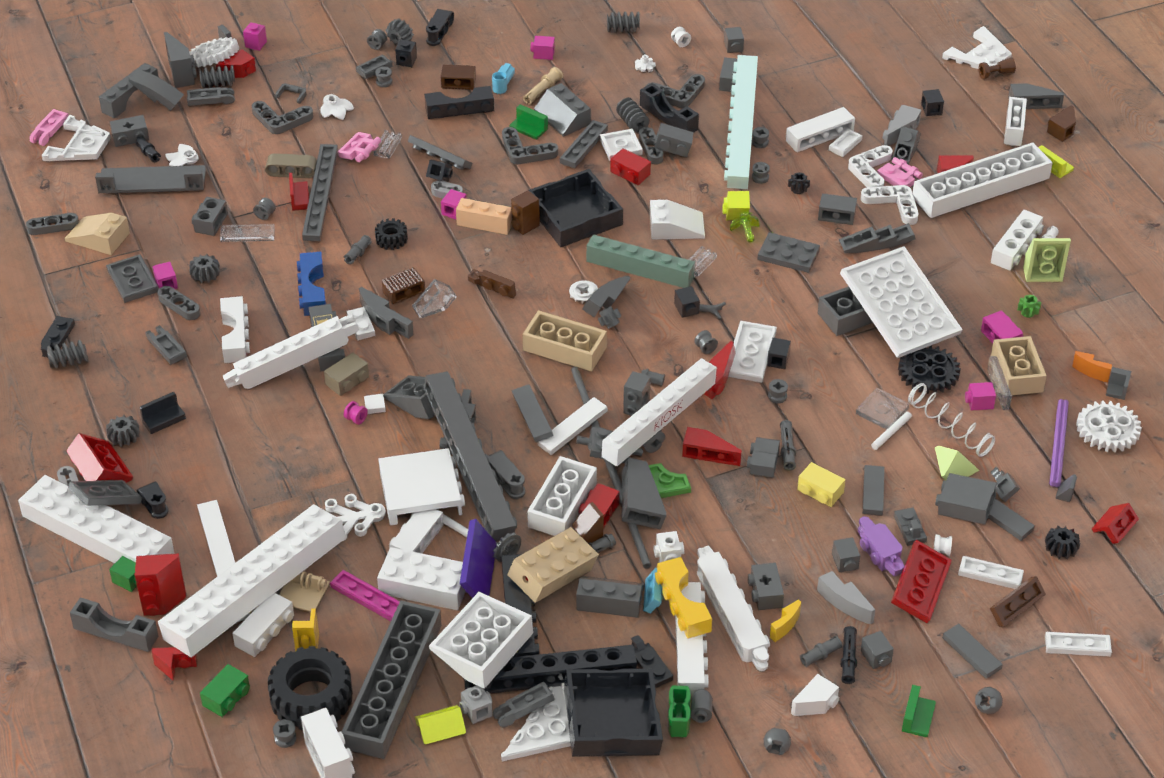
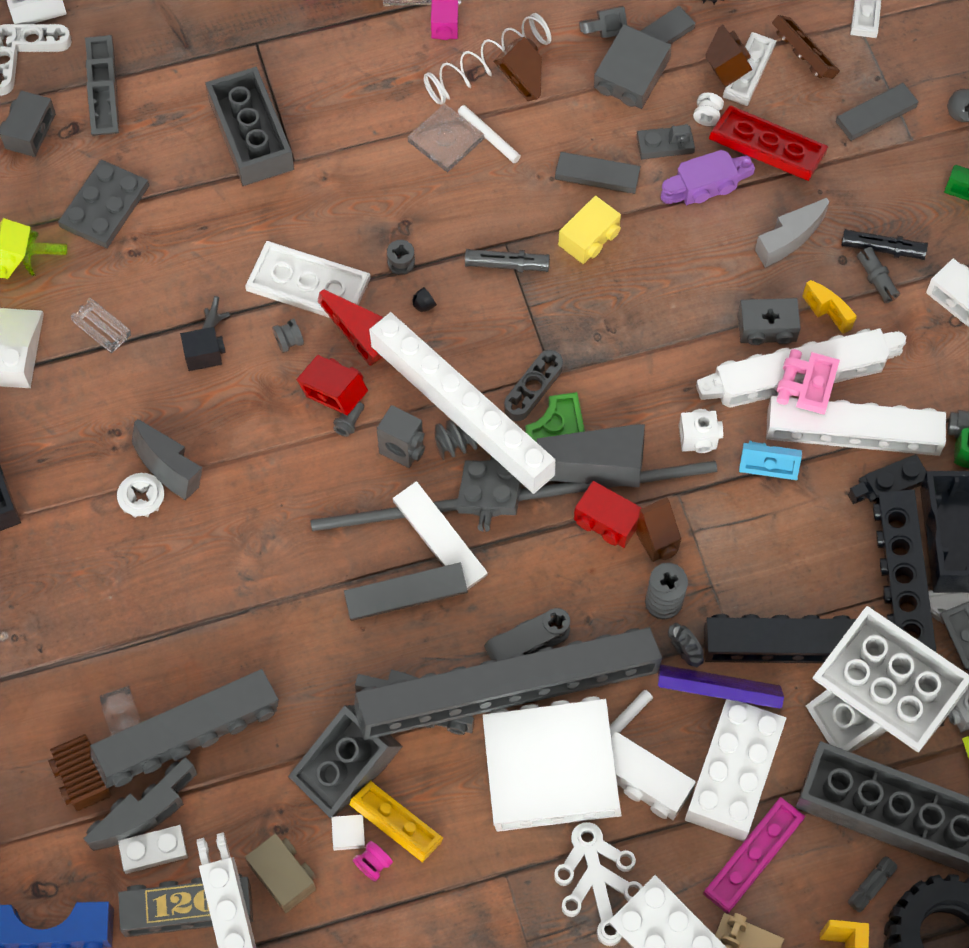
camera: 85 degrees left, 20 degrees up
(351, 657) = (872, 884): none -> dark grey axle
(381, 422) = (396, 821): none -> yellow tile
(430, 319) = (184, 729): none -> dark grey brick
(493, 282) = (98, 629): reddish brown hinge -> none
(542, 527) = (666, 591): none -> dark grey piece
(552, 564) = (738, 580): tan brick -> none
(561, 496) = (592, 560): white brick -> none
(564, 340) = (261, 528): tan brick -> none
(604, 543) = (683, 526): dark grey pin -> none
(609, 317) = (214, 461): dark grey gear -> none
(609, 596) = (769, 516): dark grey slope -> none
(640, 261) = (93, 405): sand green brick -> none
(670, 362) = (332, 384): none -> red brick
(692, 616) = (778, 424): yellow arch -> none
(705, 472) = (533, 397): none -> dark grey beam
(707, 446) = (501, 360): red slope -> none
(716, 596) = (817, 383): none -> bright pink plate
(748, 406) = (423, 300): none -> black hinge
(764, 457) = (530, 291): dark grey brick -> none
(778, 353) = (325, 242): black brick -> none
(846, 554) = (719, 220): dark grey brick -> none
(877, 650) = (880, 210): dark grey brick -> none
(901, 302) = (272, 67): white plate -> none
(929, 367) = (363, 68): black gear -> none
(943, 432) = (522, 67): none -> reddish brown slope
(953, 462) = (567, 72): yellowish green slope -> none
(992, 551) = (728, 56): none -> reddish brown slope

